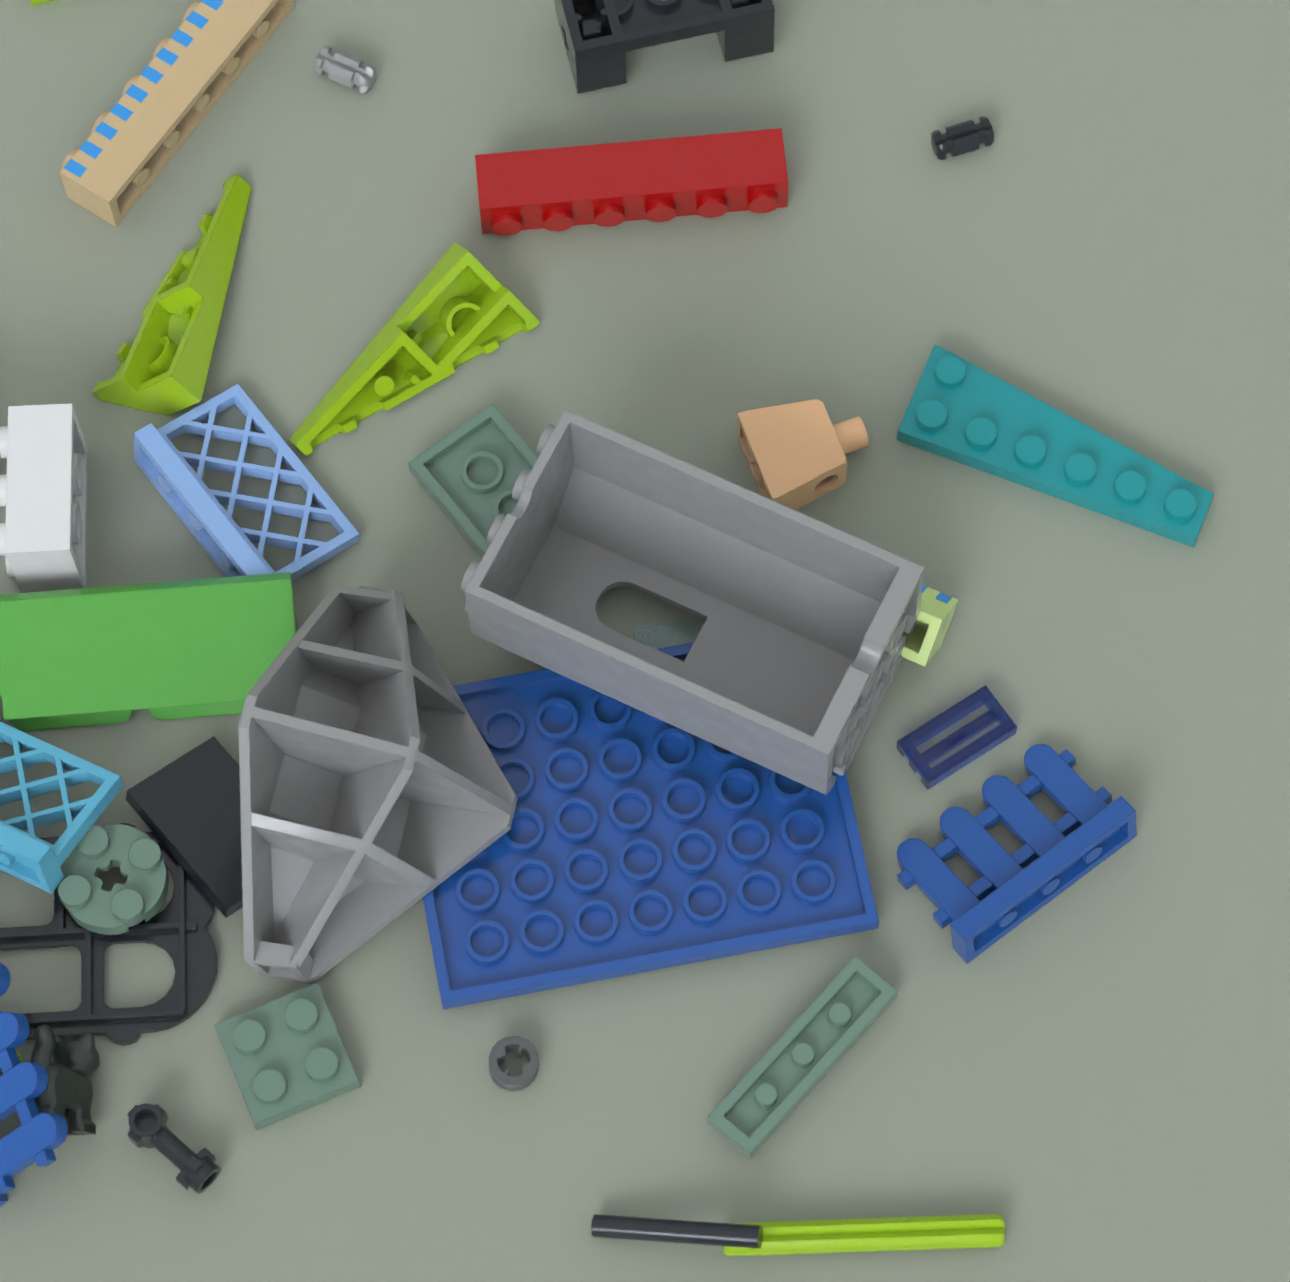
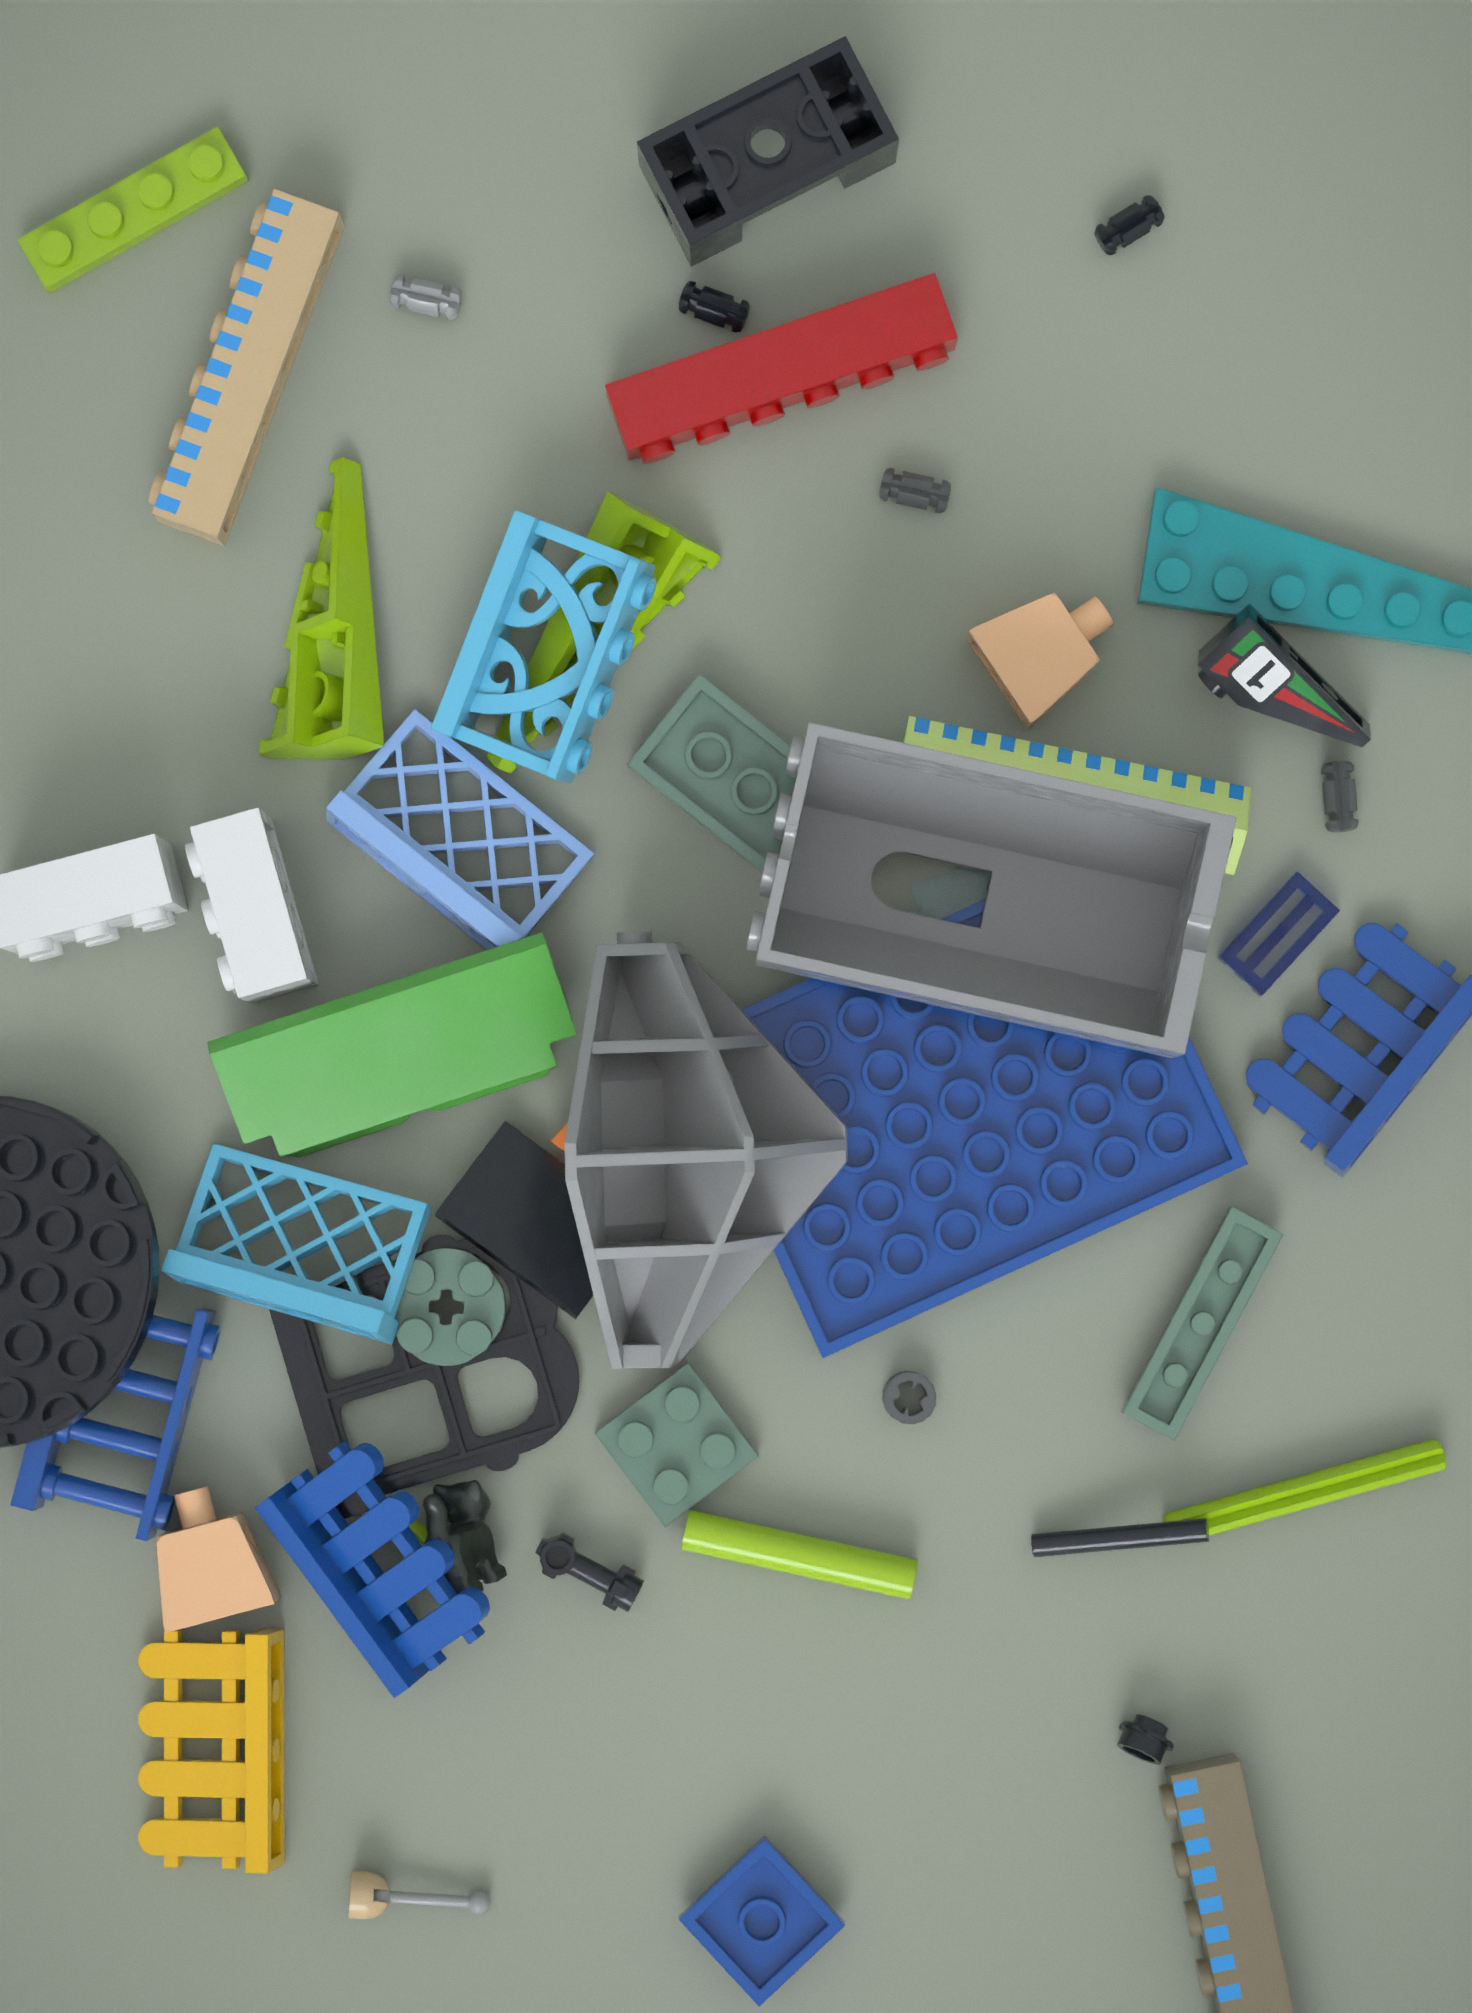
camera: 15 degrees left, 20 degrees up
(372, 1179) = (799, 1554): none -> lime piece
(380, 390) = (472, 682): none -> medium azure fence
(586, 125) = (714, 306): none -> black piece
(722, 304) = (915, 490): none -> dark grey piece
(992, 506) = (1272, 678): none -> black slope
(1039, 632) = (1339, 796): none -> dark grey piece

